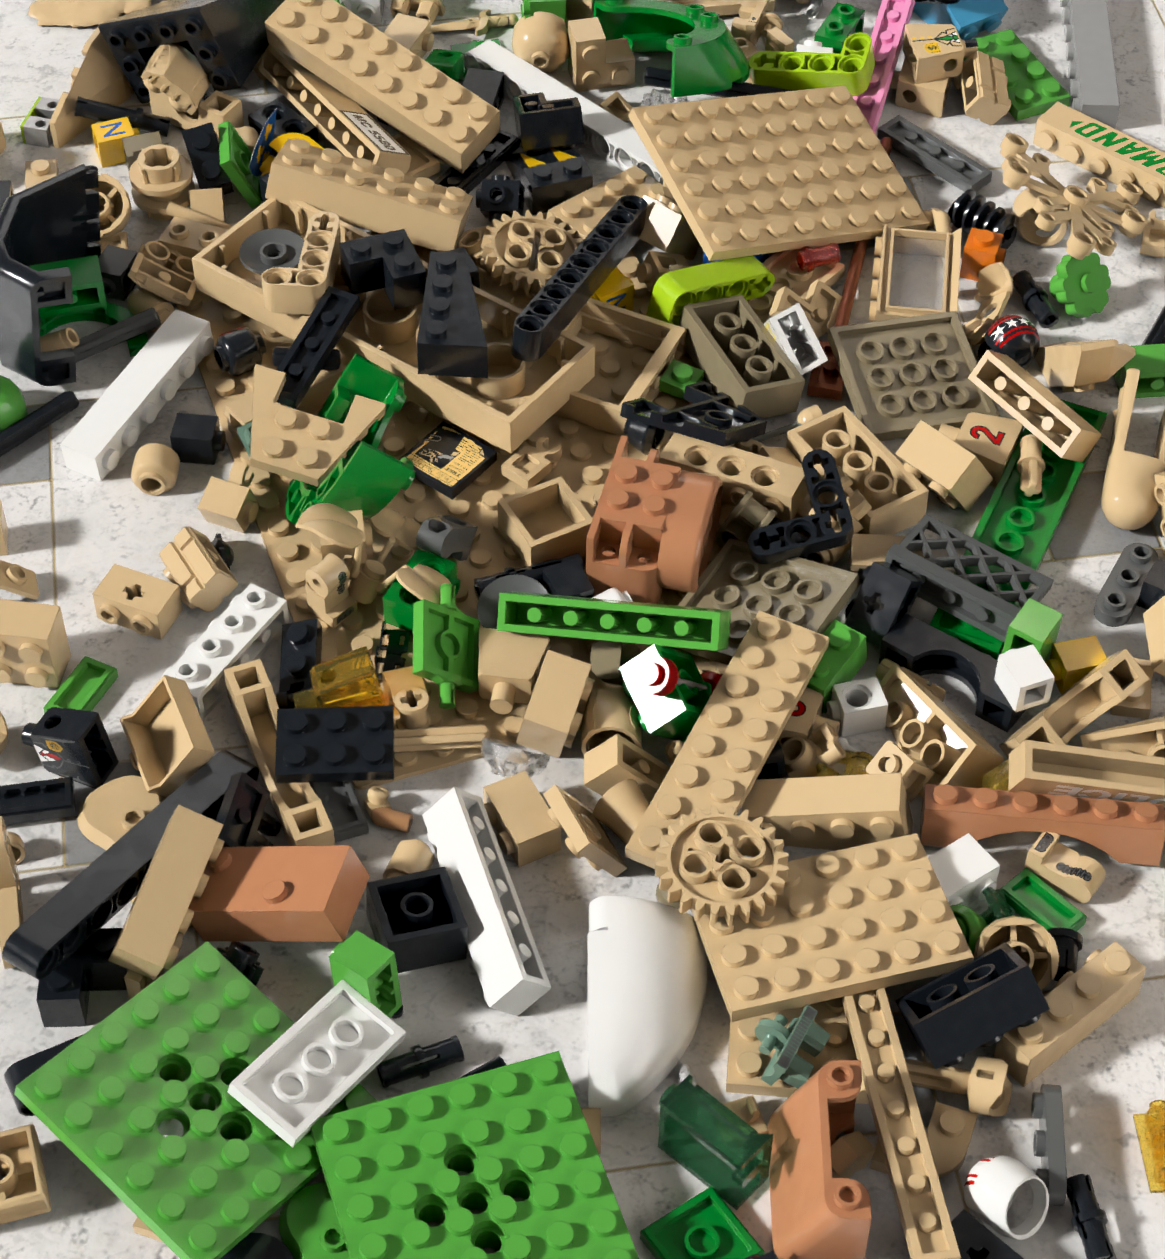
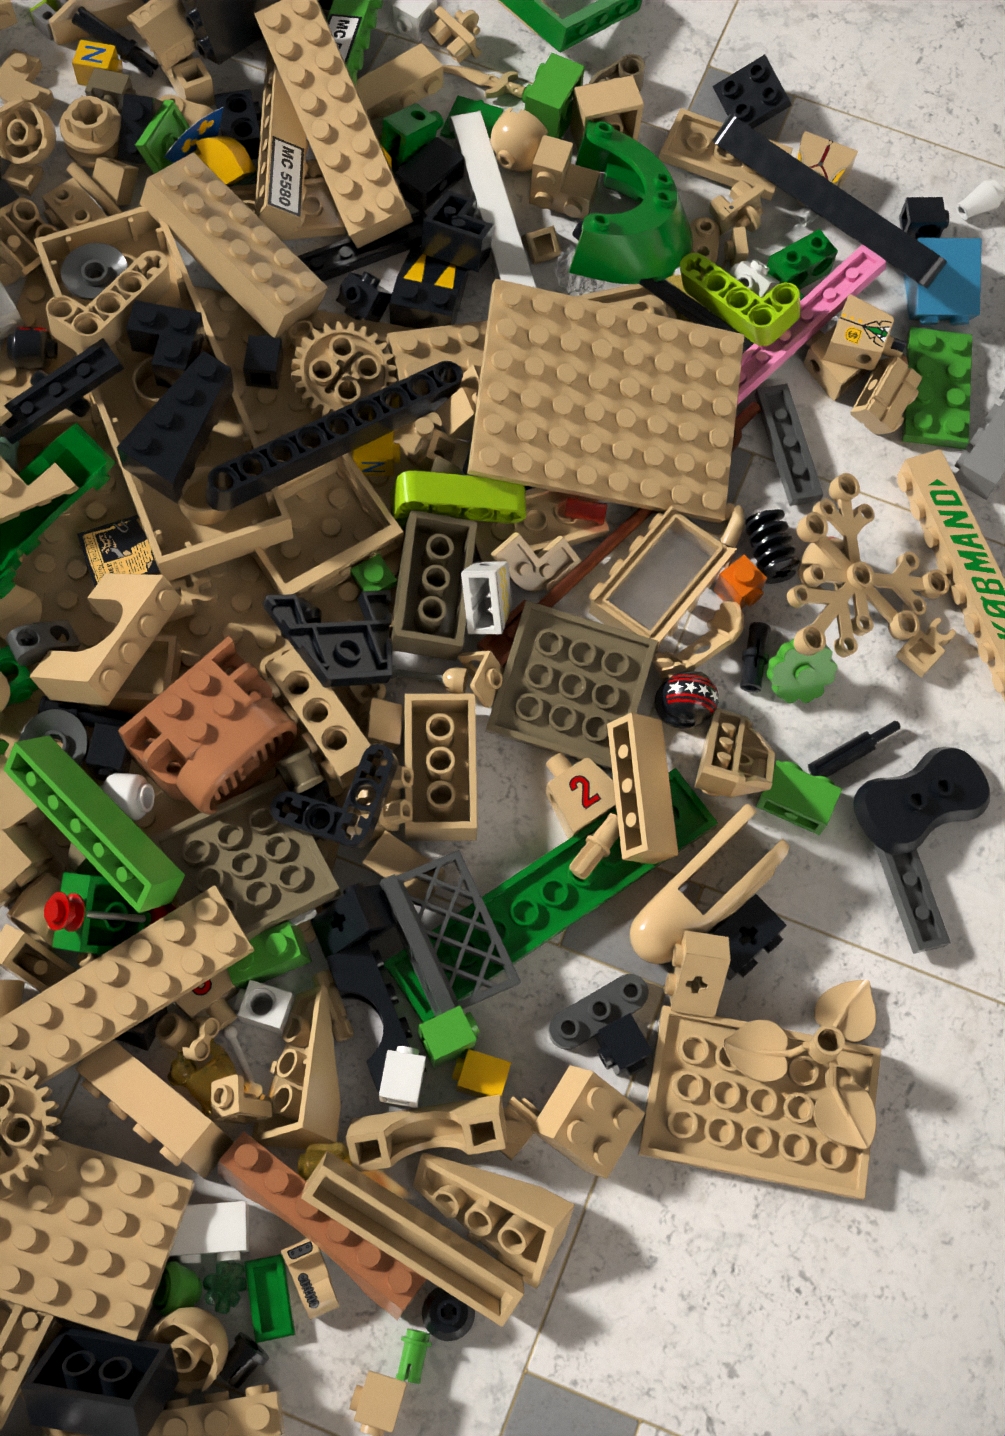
camera: 25 degrees right, 20 degrees up
(527, 515) = (96, 674): none -> tan arch
(842, 394) = (486, 677): none -> tan bracket
(944, 467) = (515, 806): tan brick -> none

